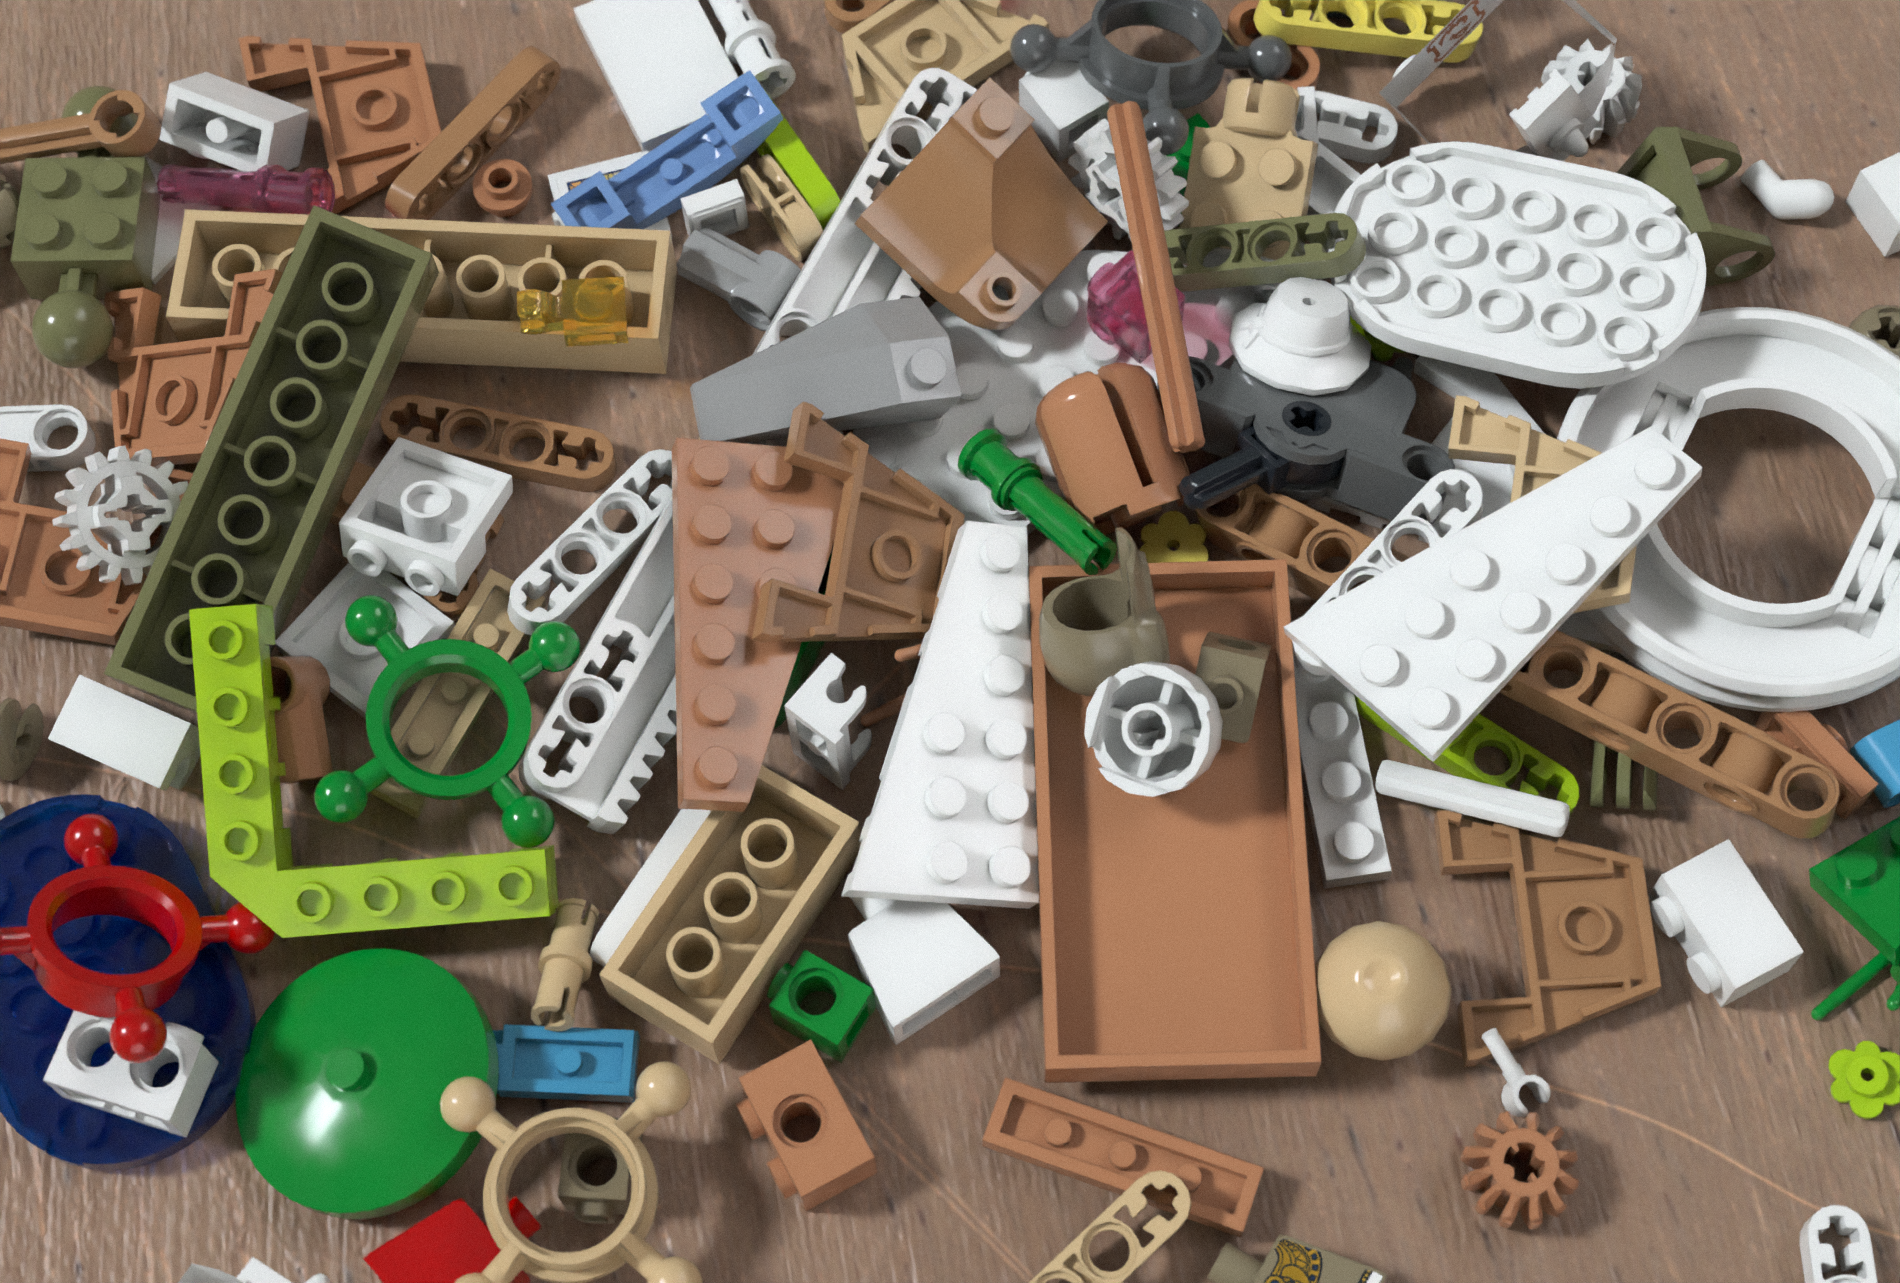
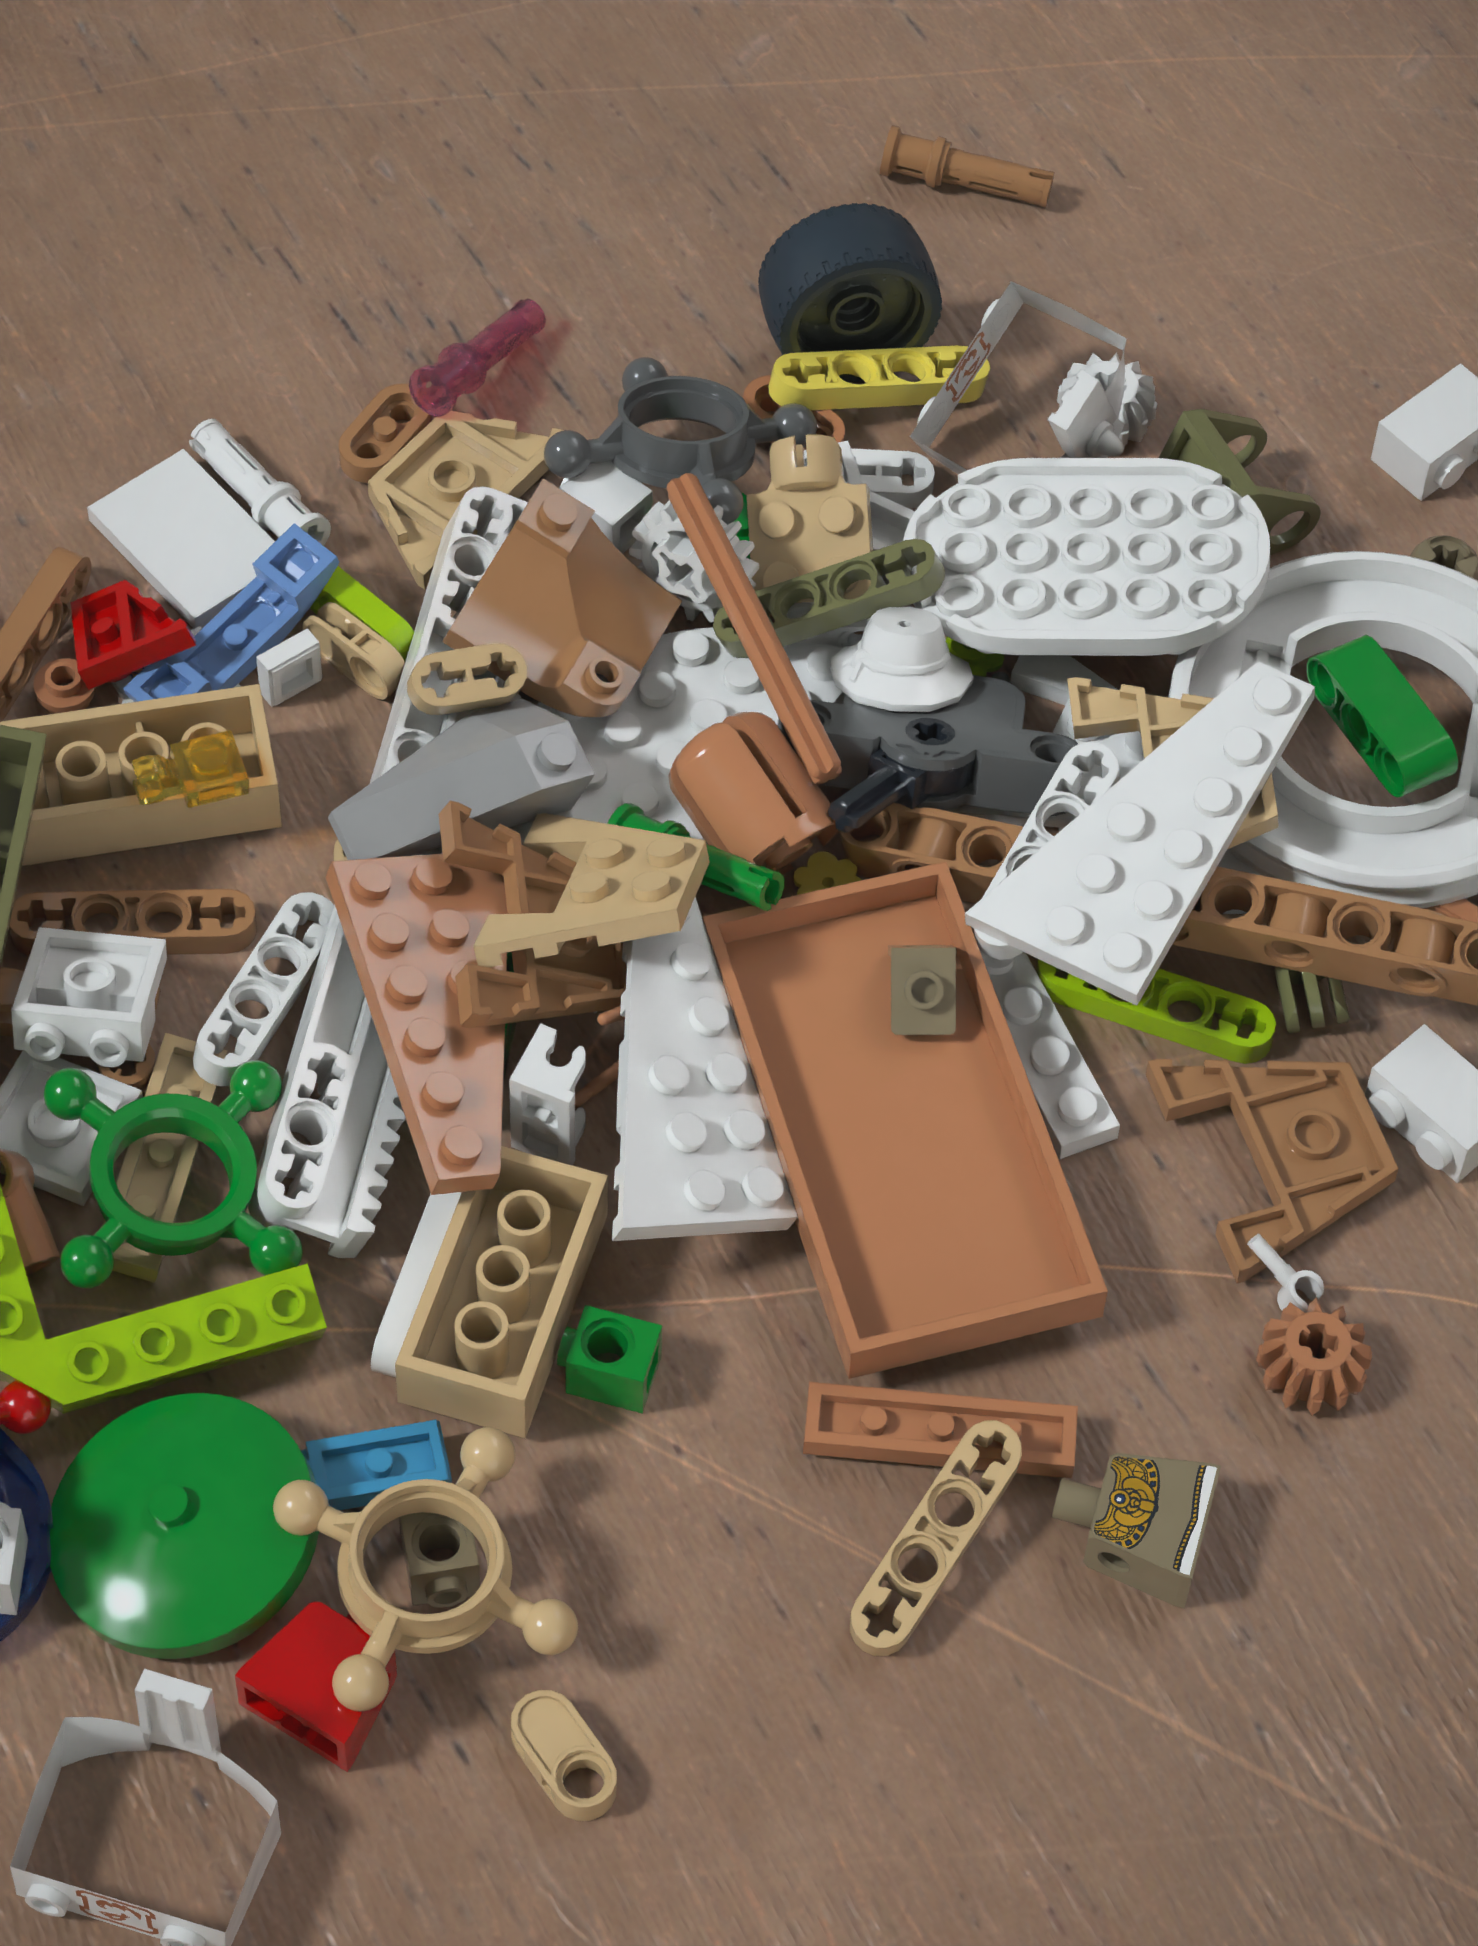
camera: 20 degrees left, 10 degrees down
(563, 148) = (122, 633): none -> red wing
(565, 965) = (350, 1375): tan pin -> none
(748, 281) = (343, 725): light grey piece -> none
(797, 1087) = (619, 1434): nougat brick -> none
(864, 254) = (469, 693): none -> tan beam
(918, 960) = (697, 1292): white torso -> none
(949, 532) = (620, 891): none -> tan wing
(1103, 623) = (798, 952): dark tan piece -> none
(1117, 307) = (721, 671): clear pink brick -> none
(1153, 728) = (868, 1026): white cylinder -> none
(1381, 990) = (1145, 1222): tan piece -> none
(1472, 798) = (1177, 1043): white axle -> none
(1770, 504) = (1382, 716): none -> green beam
(1787, 197) = (1317, 463): white arm -> none

